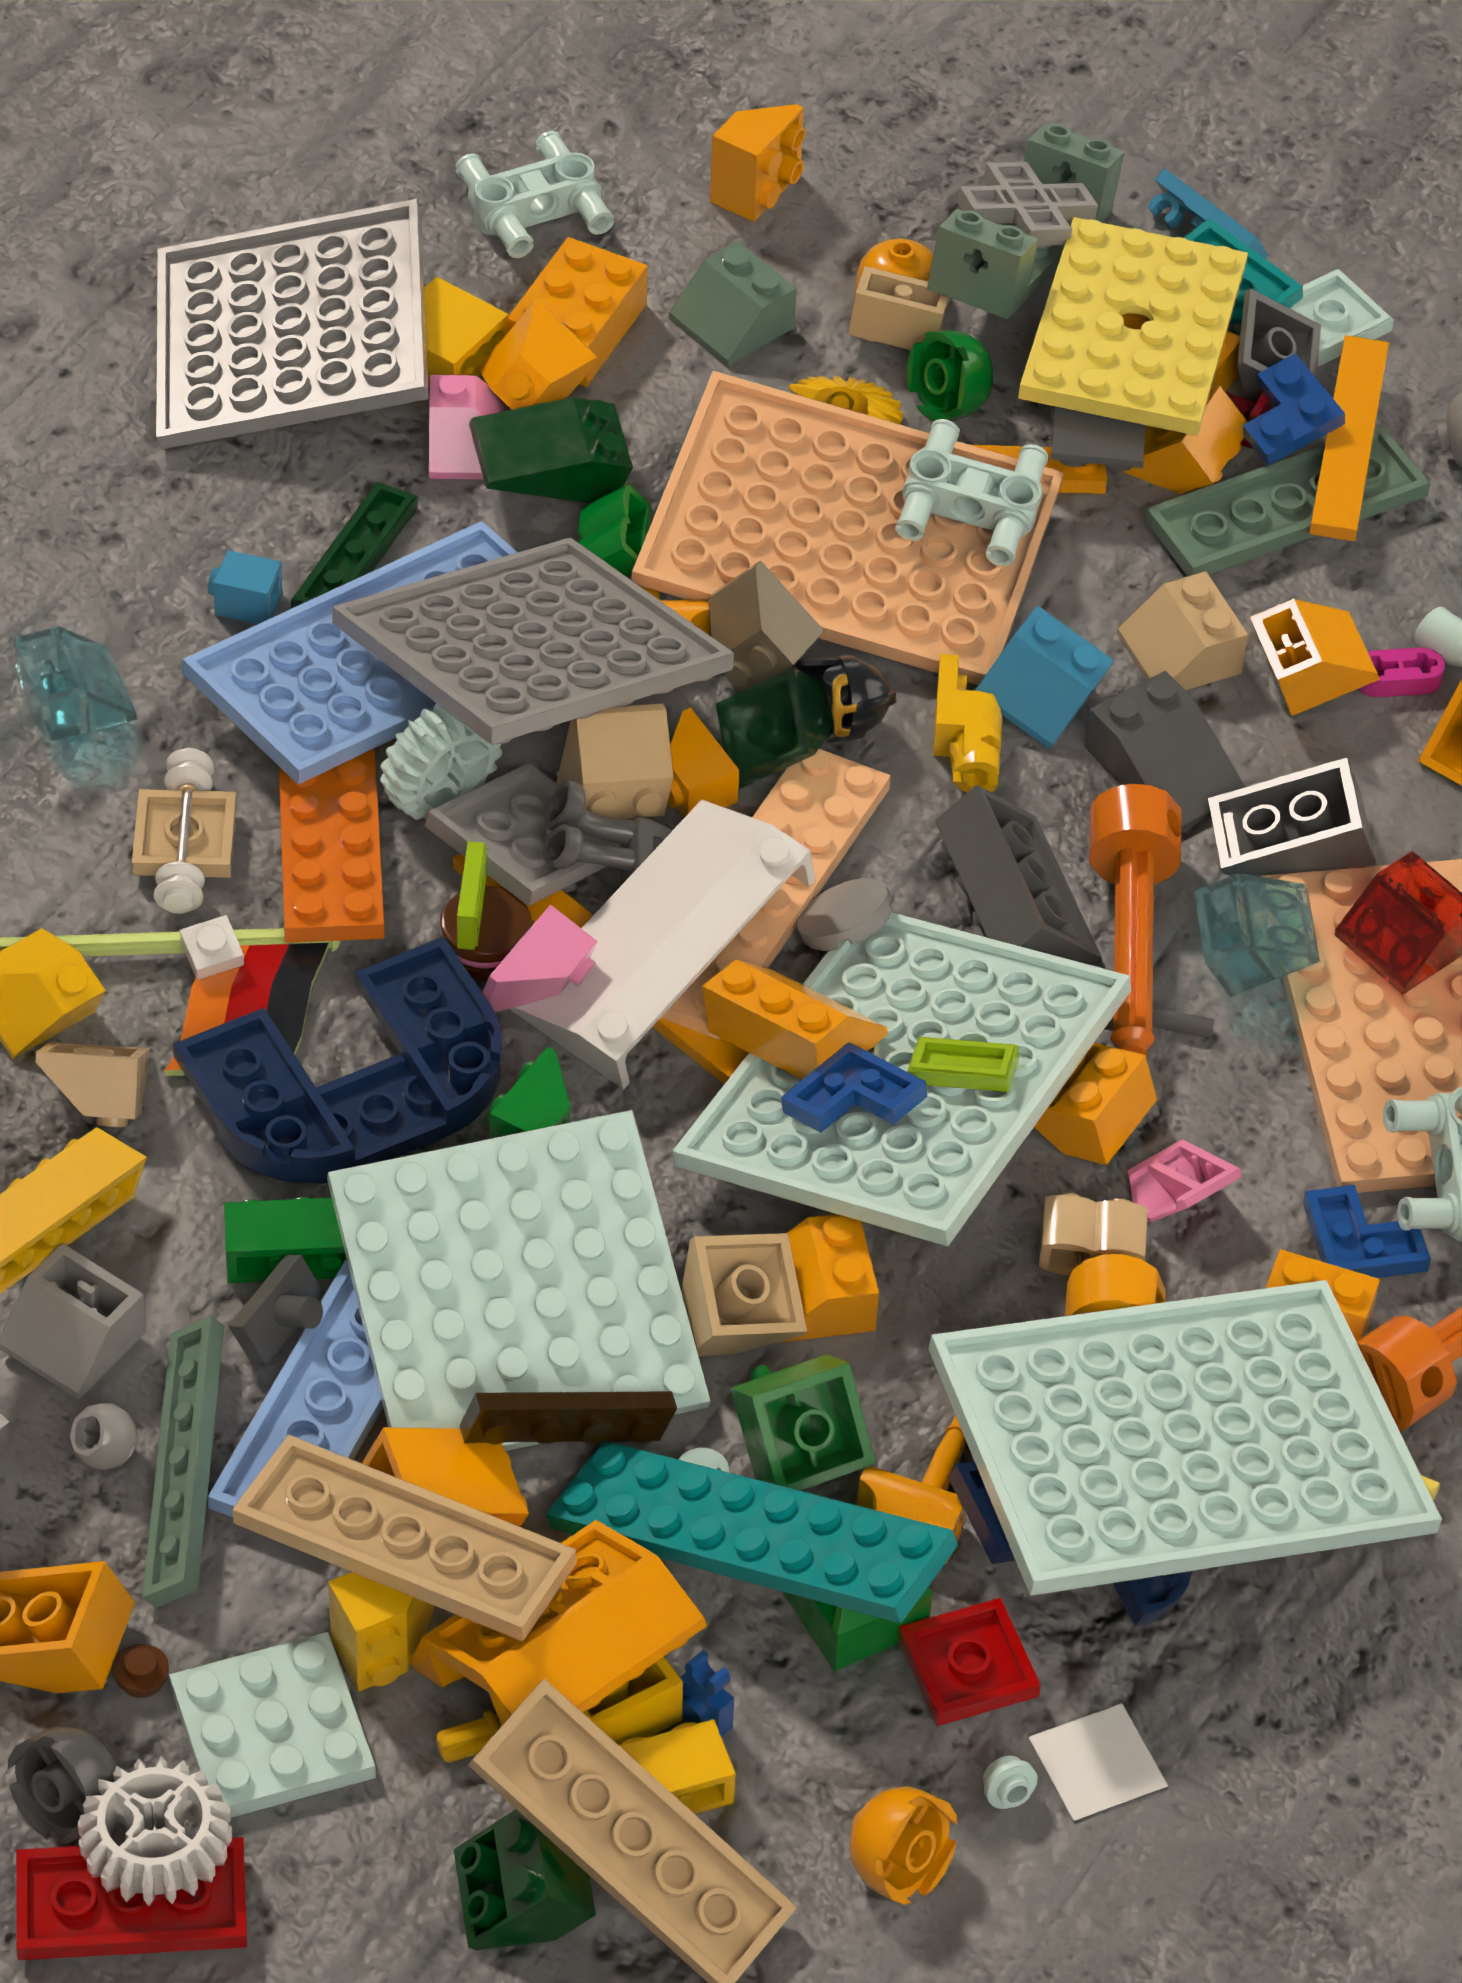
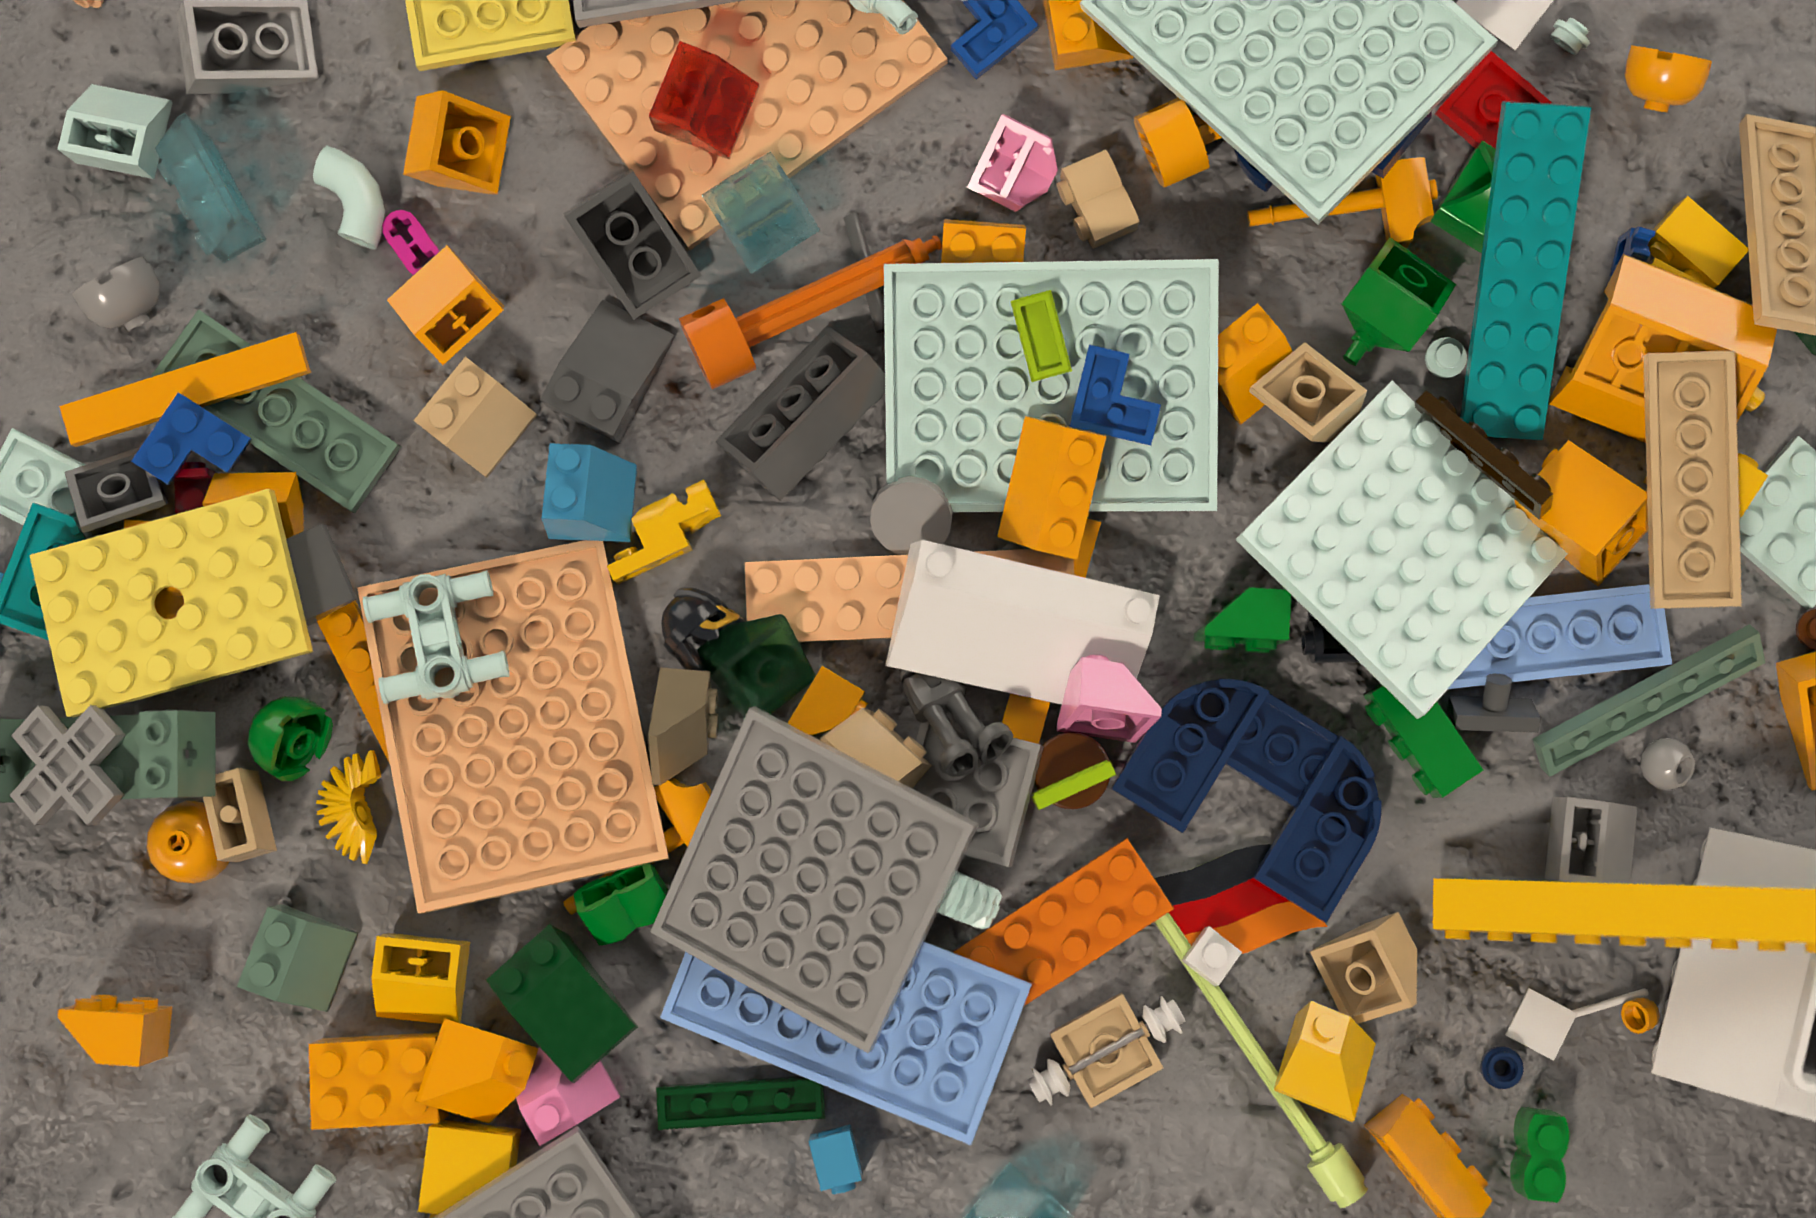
camera: 115 degrees left, 35 degrees up
(656, 375) = (419, 977): none -> yellow slope

